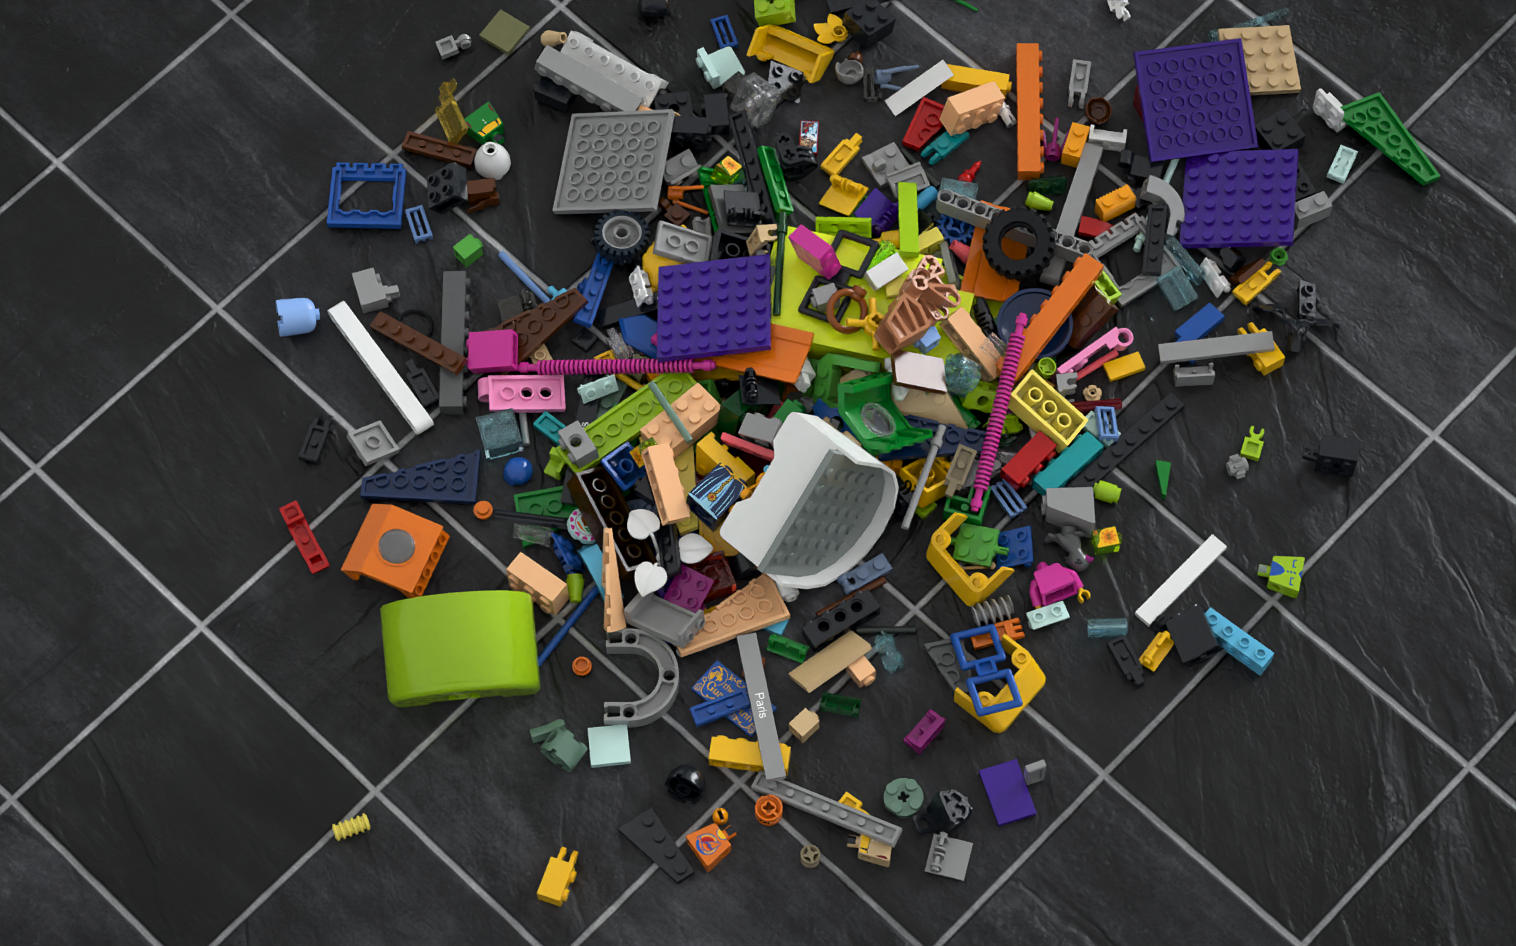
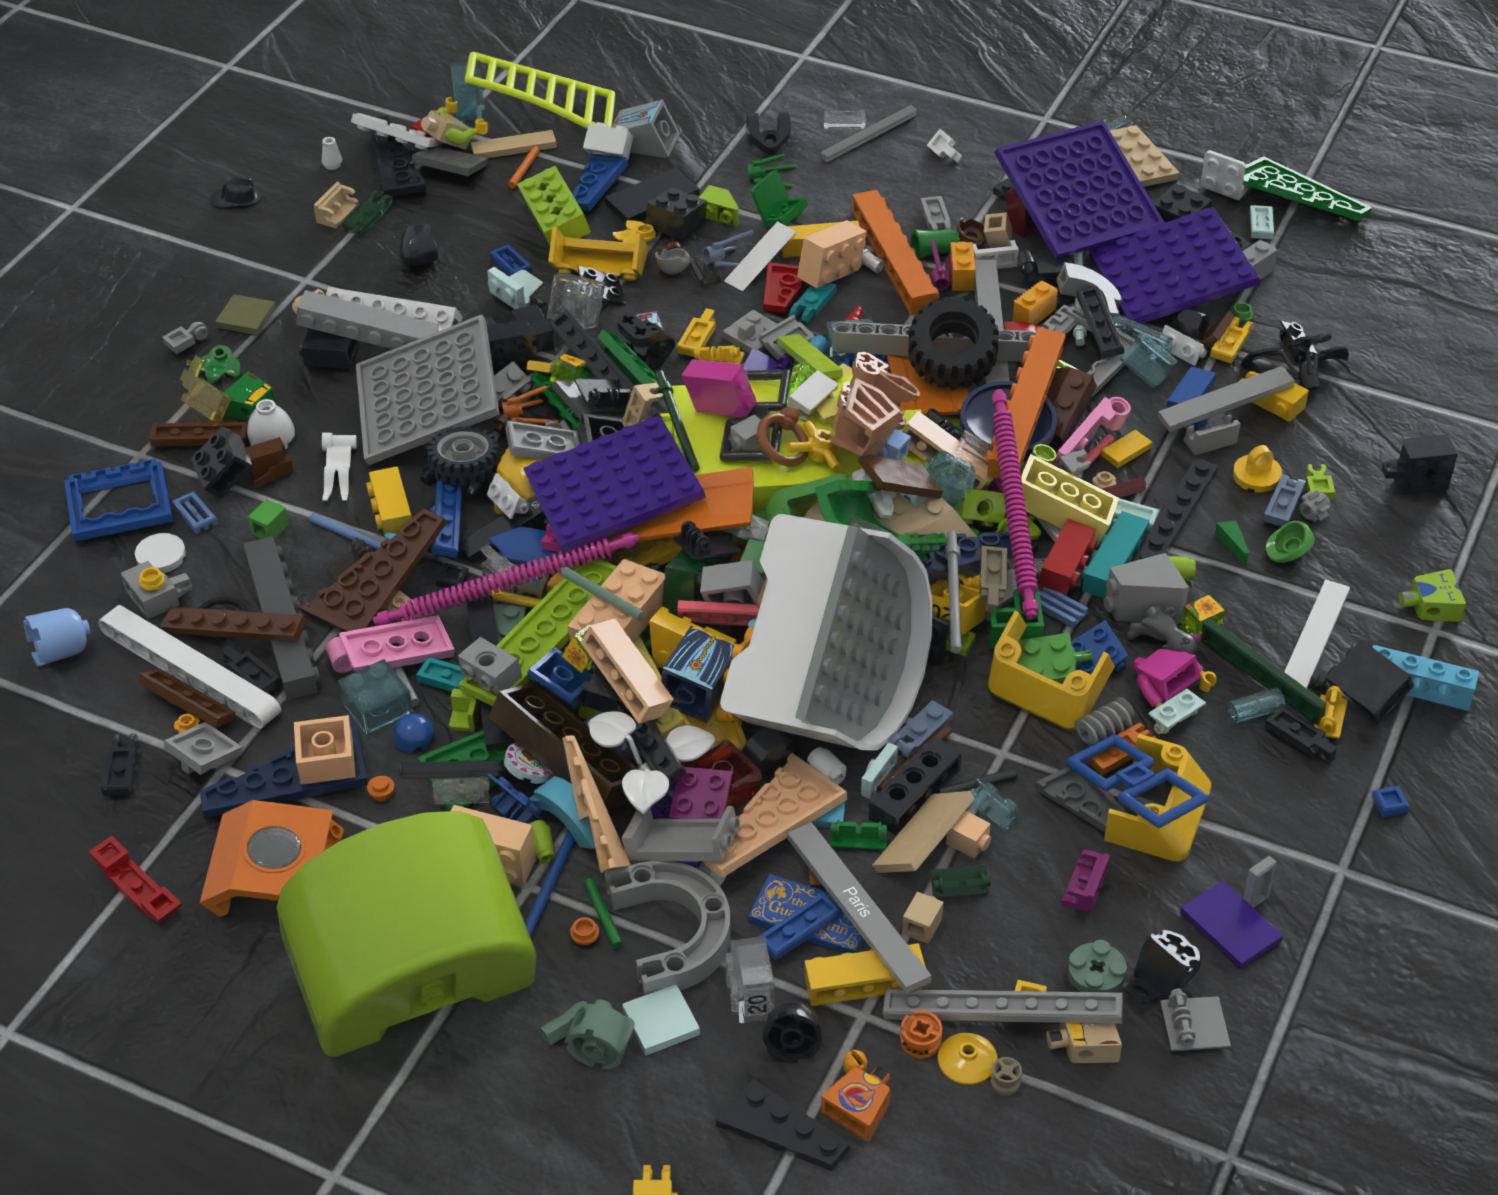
camera: 20 degrees left, 20 degrees down
(368, 412) = (186, 722): none -> light orange plate
(371, 289) = (151, 579): none -> yellow plate
(372, 395) = (187, 697): none -> reddish brown plate
(385, 256) = (162, 551): none -> white tile
(450, 475) = (324, 749): none -> light nougat brick
(469, 82) = (217, 366): none -> green plate
(492, 351) = (336, 607): dark pink brick -> none
(533, 207) = (337, 459): none -> white flag
(559, 258) = (388, 500): none -> yellow brick
(598, 388) = (491, 610): light aqua hinge -> none
(598, 655) = (603, 913): none -> green bar
(672, 739) = (750, 979): none -> clear brick
(710, 159) = (540, 366): none -> yellow tile
(792, 843) = (966, 1068): none -> yellow dish
(821, 600) = (879, 770): none -> light aqua plate
(907, 20) = (720, 206): none -> lime slope
(952, 33) = (774, 201): none -> green bracket
(1064, 111) = (921, 241): none -> green plant
(1107, 435) = (1138, 501): medium blue tile -> none
(1119, 115) = (998, 229): none -> tan brick
(1124, 601) = (1263, 670): none -> dark green tile
(1164, 732) = (1390, 801): none -> blue tile
(1201, 494) = (1290, 542): none -> bright green hat
(1212, 419) = (1257, 470): none -> yellow tile
(1218, 453) = (1284, 501): none -> sand blue plate

